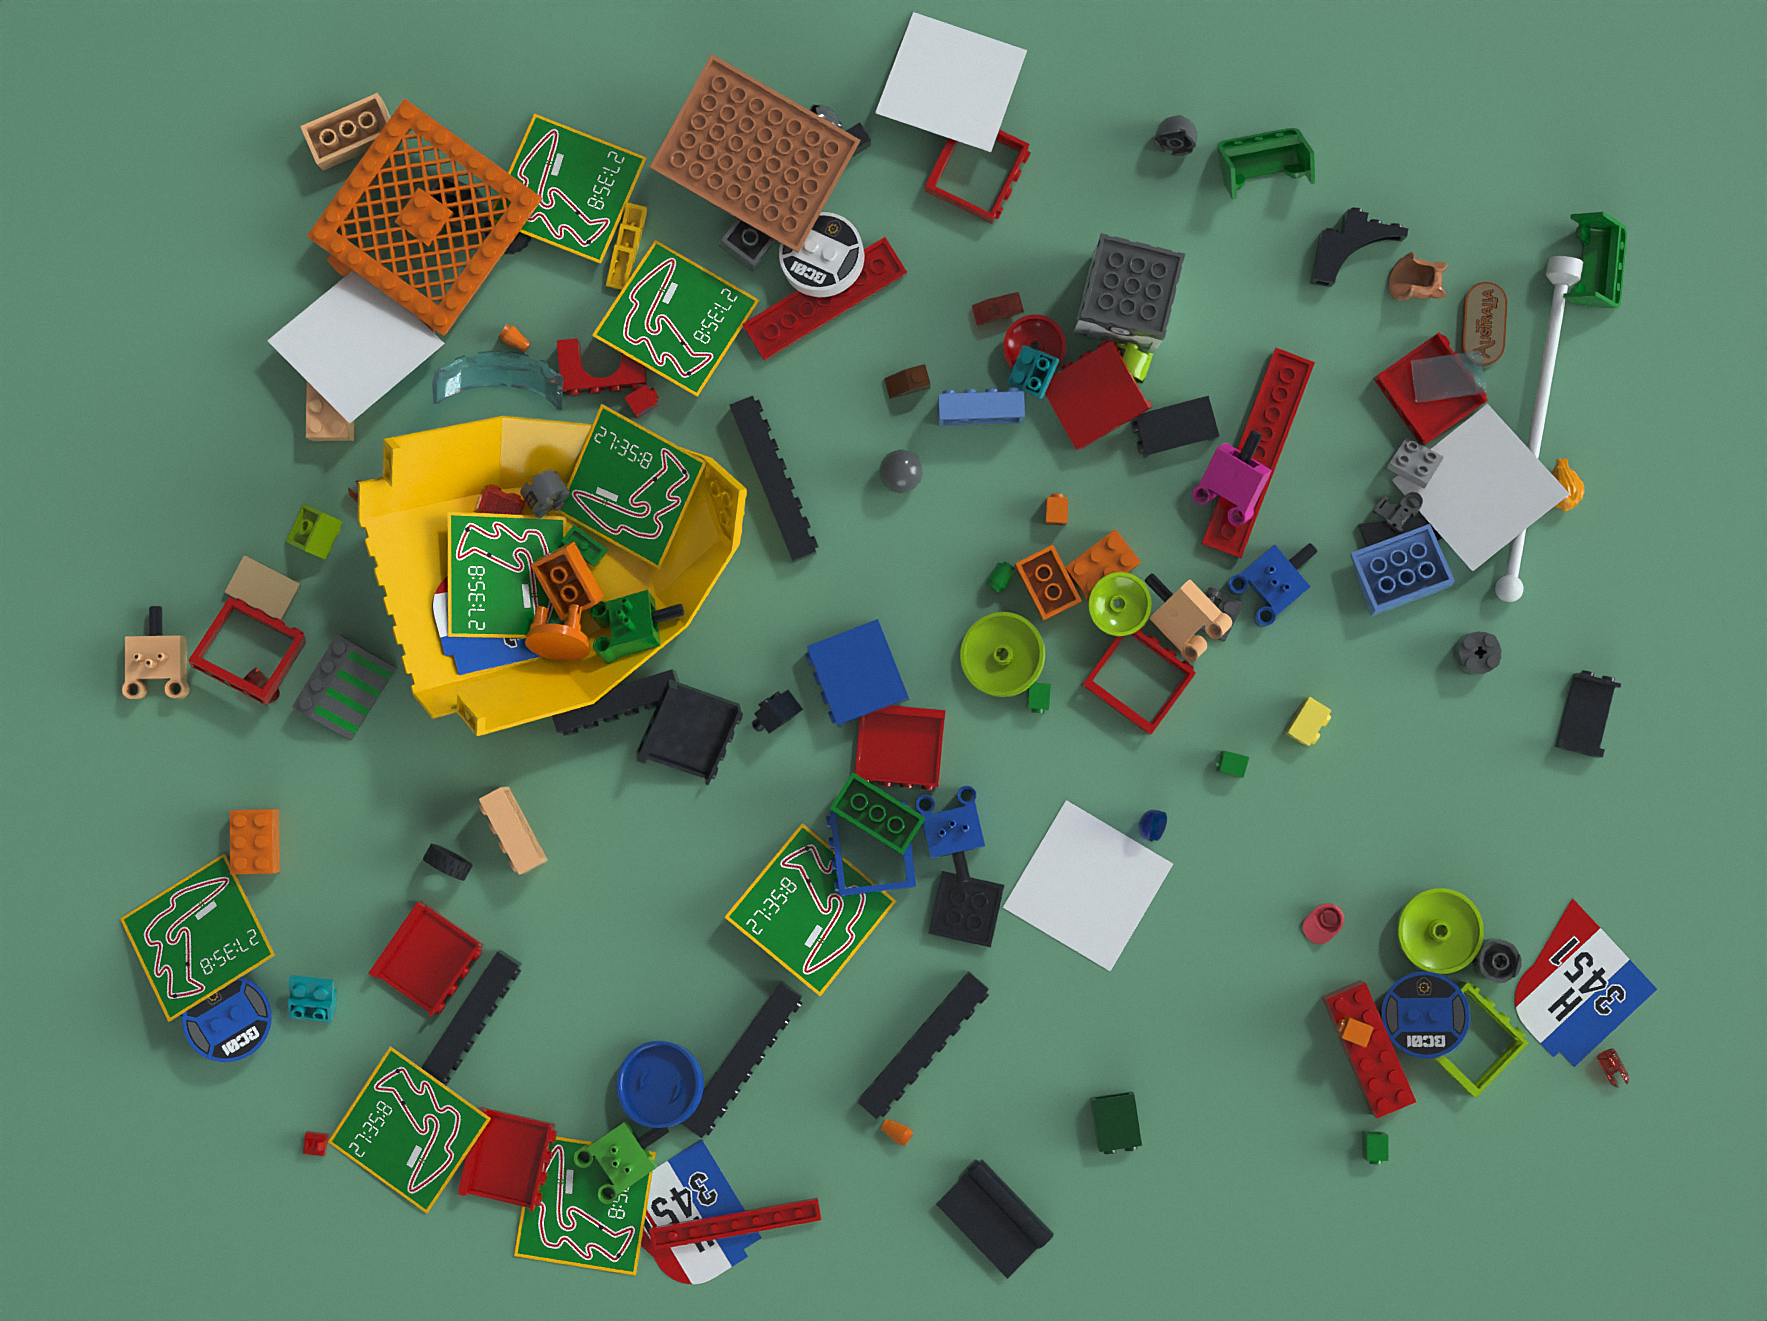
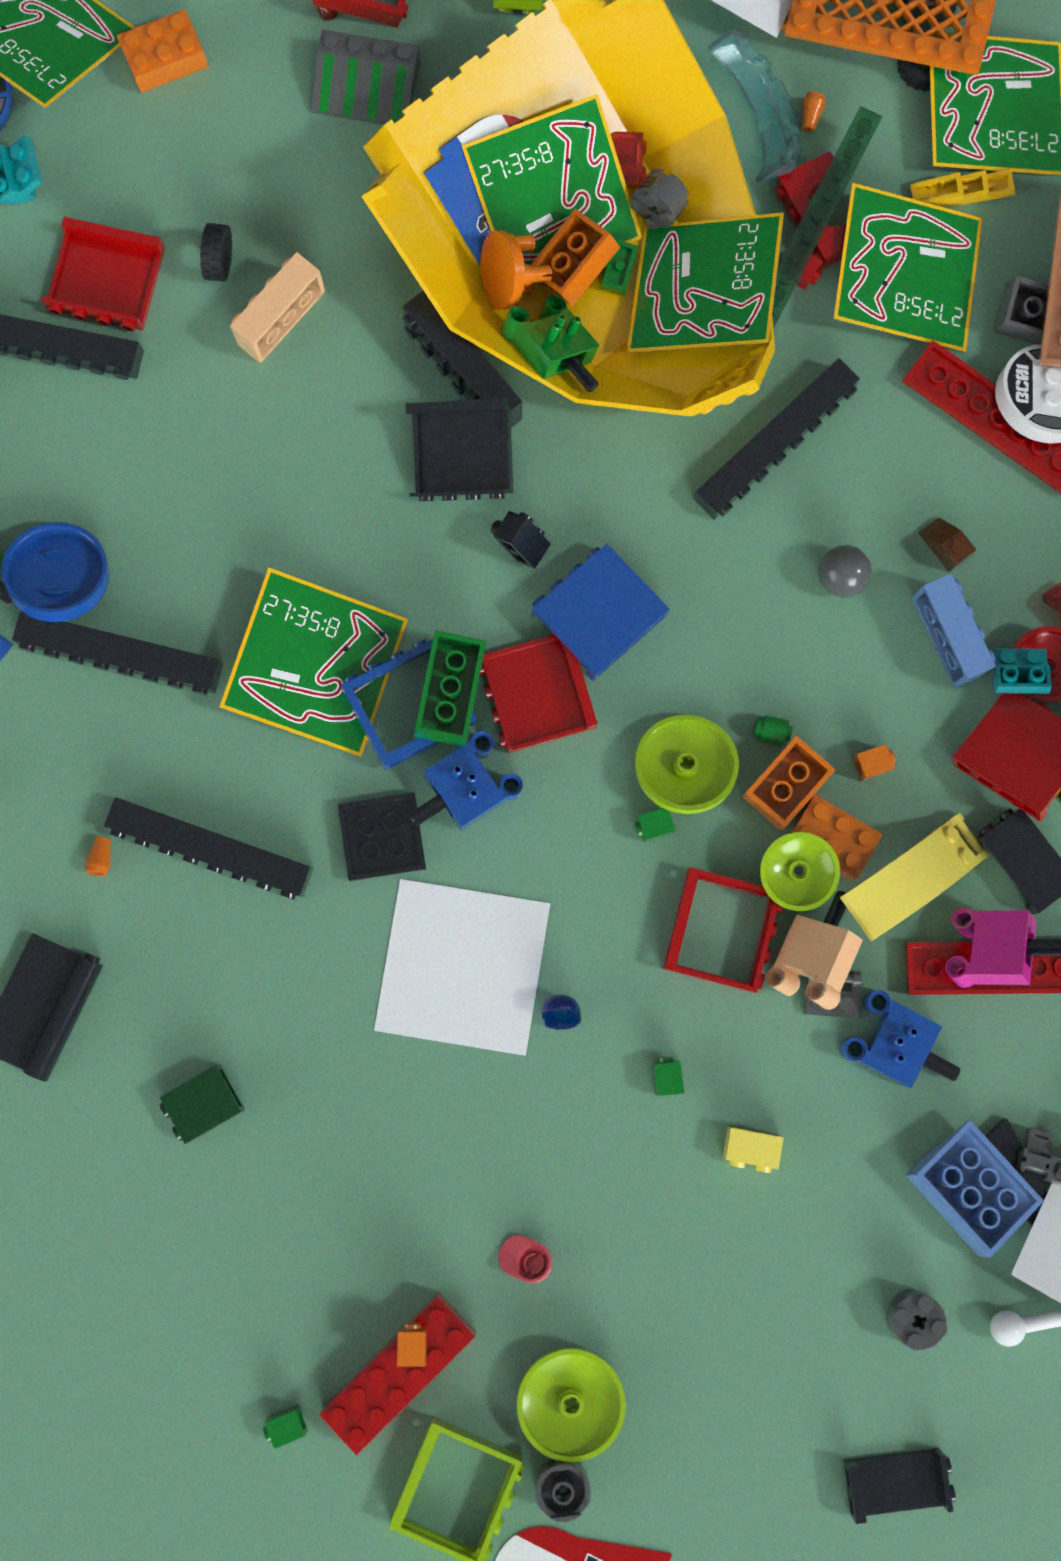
camera: 65 degrees right, 5 degrees down
(603, 367) = (823, 206): none -> clear green plate
(1157, 518) = (914, 877): none -> light yellow windscreen
(1426, 1015) = (464, 1427): piece -> none

